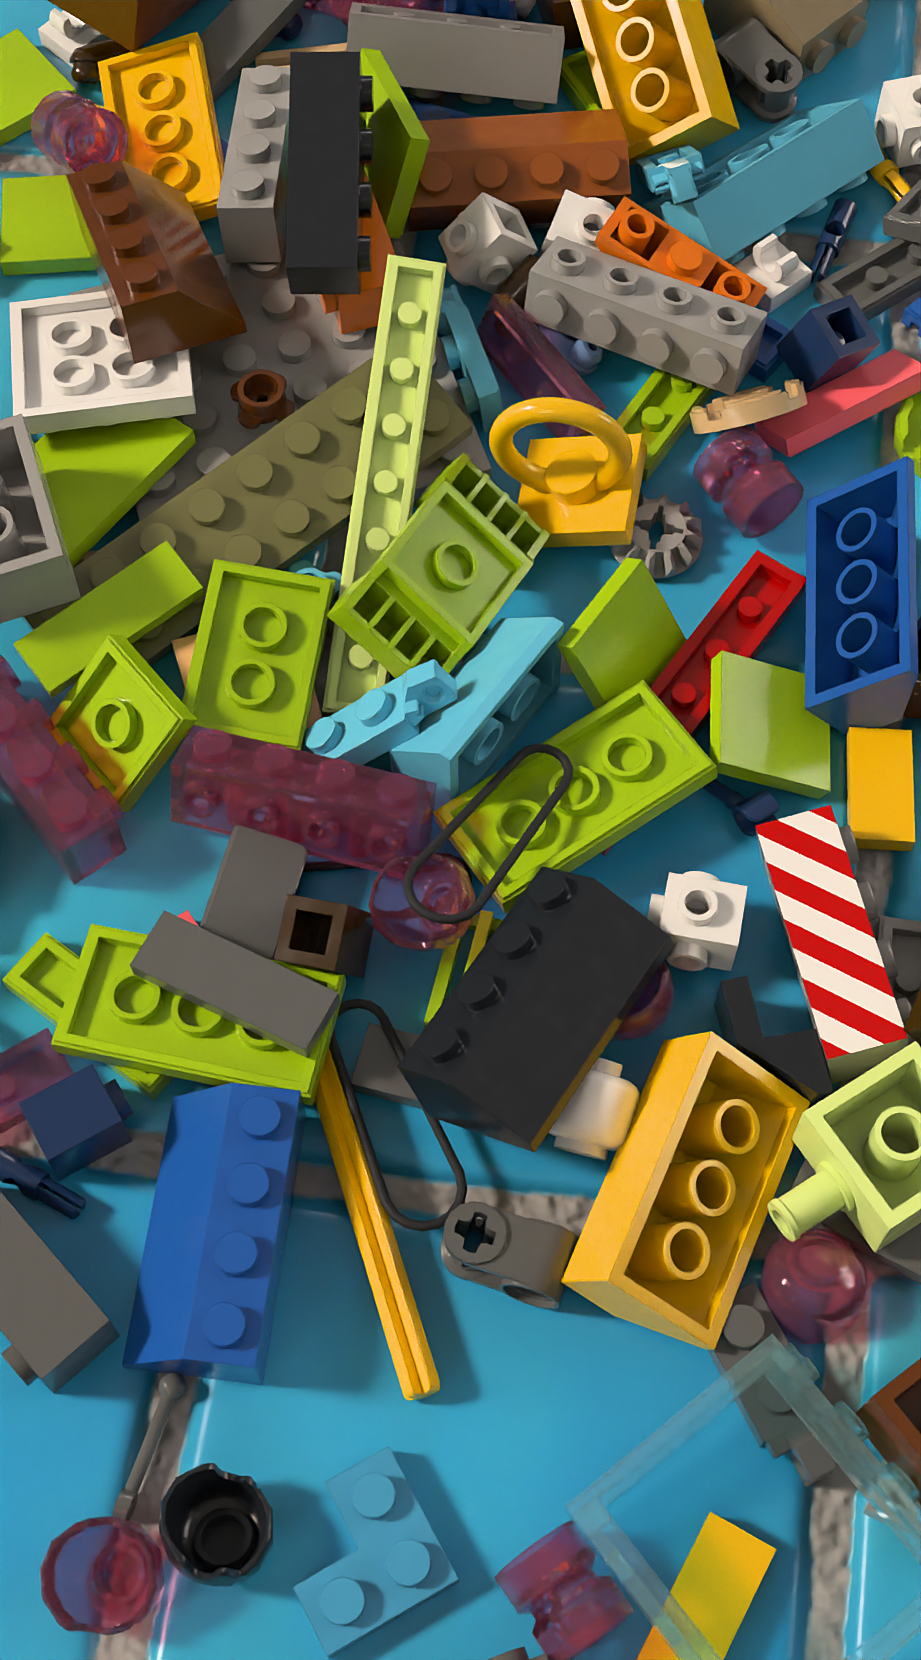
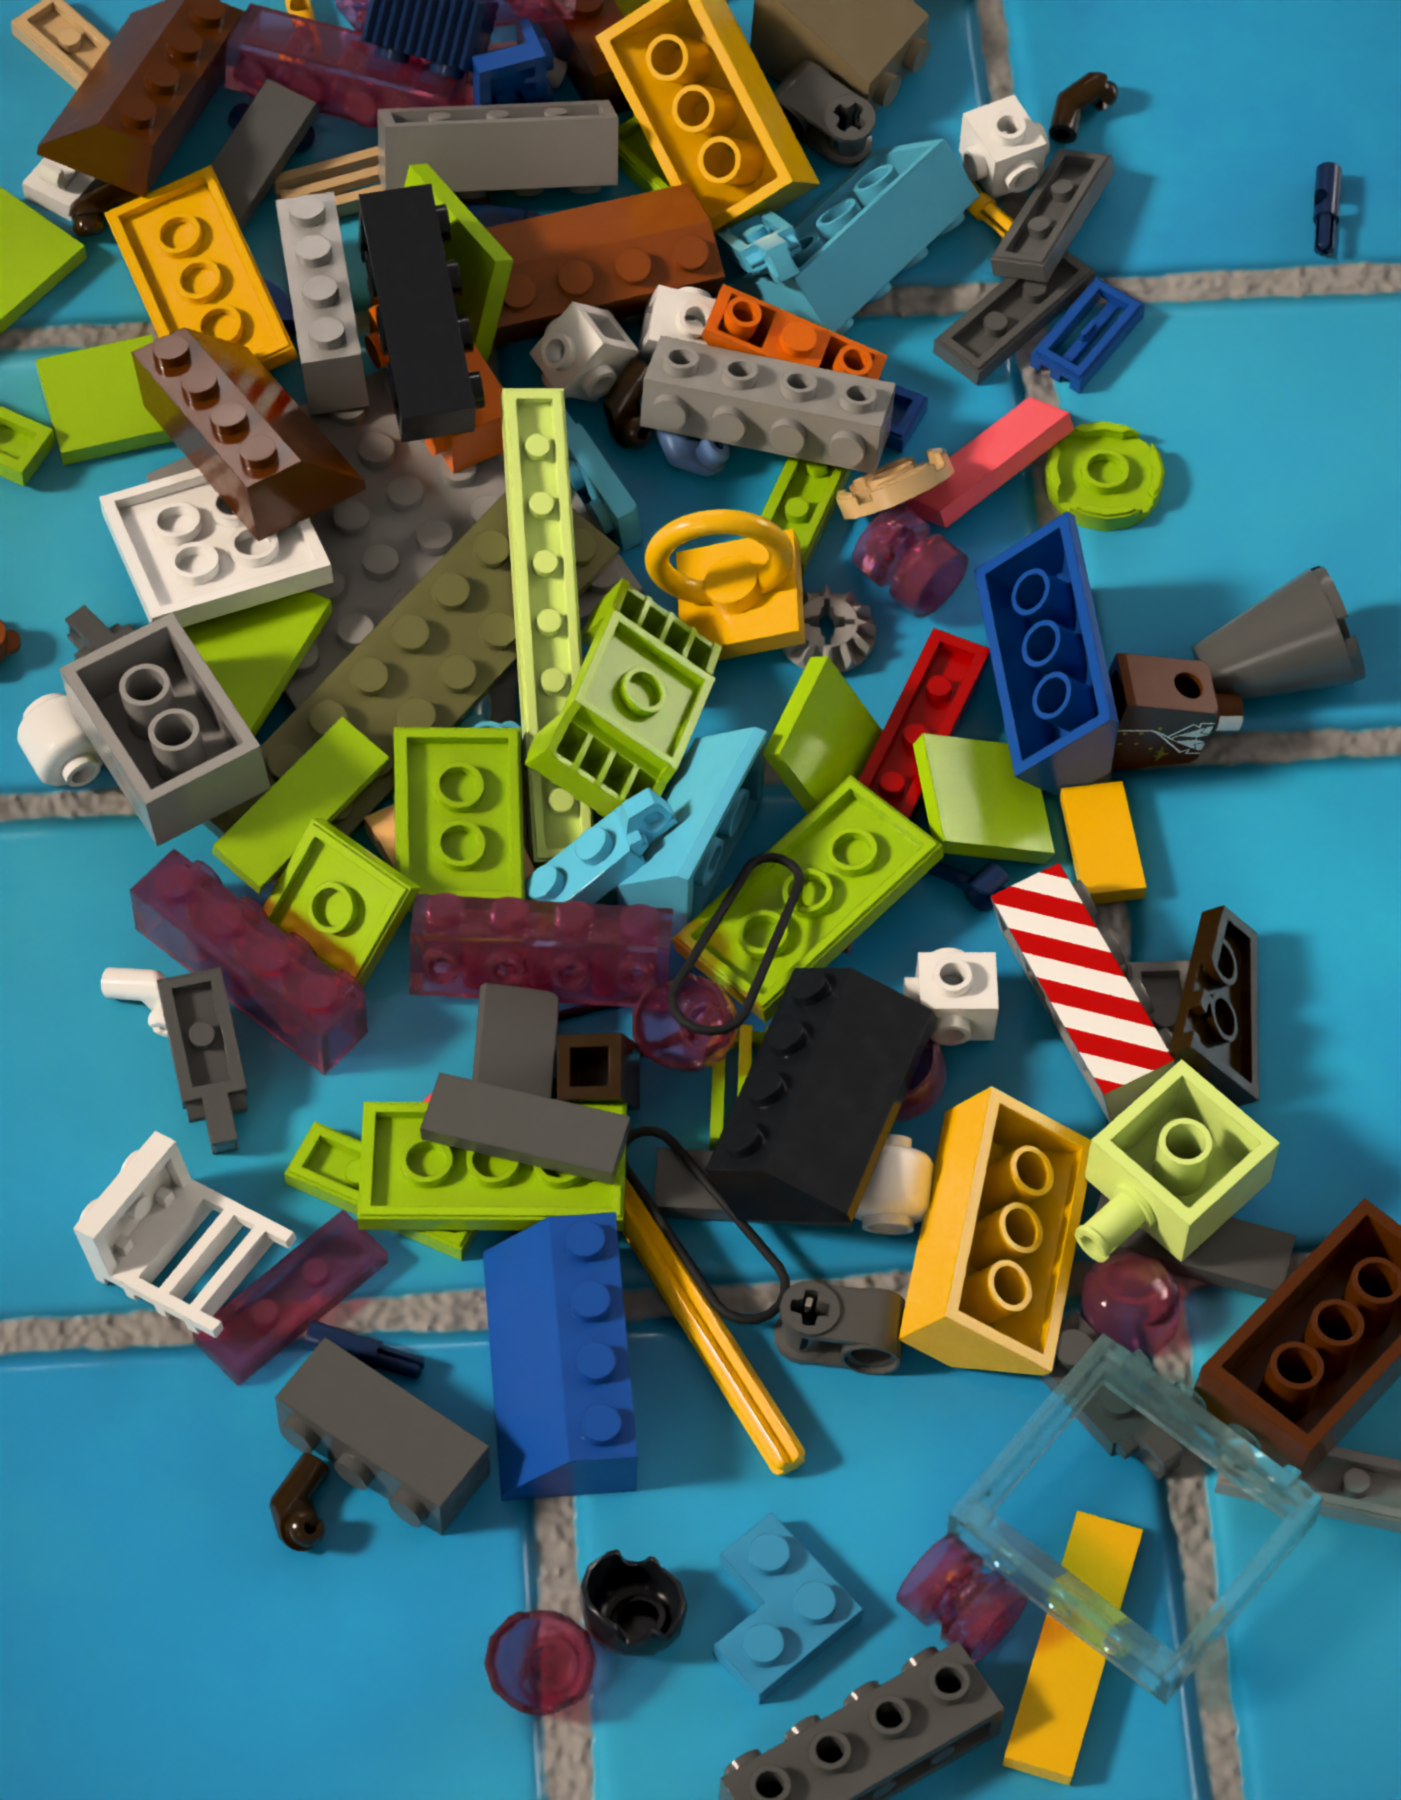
camera: 15 degrees left, 5 degrees down
(77, 131) = (113, 300): clear pink wheel -> none
(78, 1120) = (400, 1286): dark blue brick -> none
(171, 1388) = (553, 1506): dark grey hinge -> none
(261, 386) = (387, 542): reddish brown plate -> none
(531, 360) = (661, 471): clear pink tile -> none
(777, 270) = (889, 332): white tile -> none
(790, 1057) = (1069, 1102): black slope -> none
(828, 342) = (961, 403): dark blue brick -> none
(833, 237) = (940, 296): dark blue pin -> none

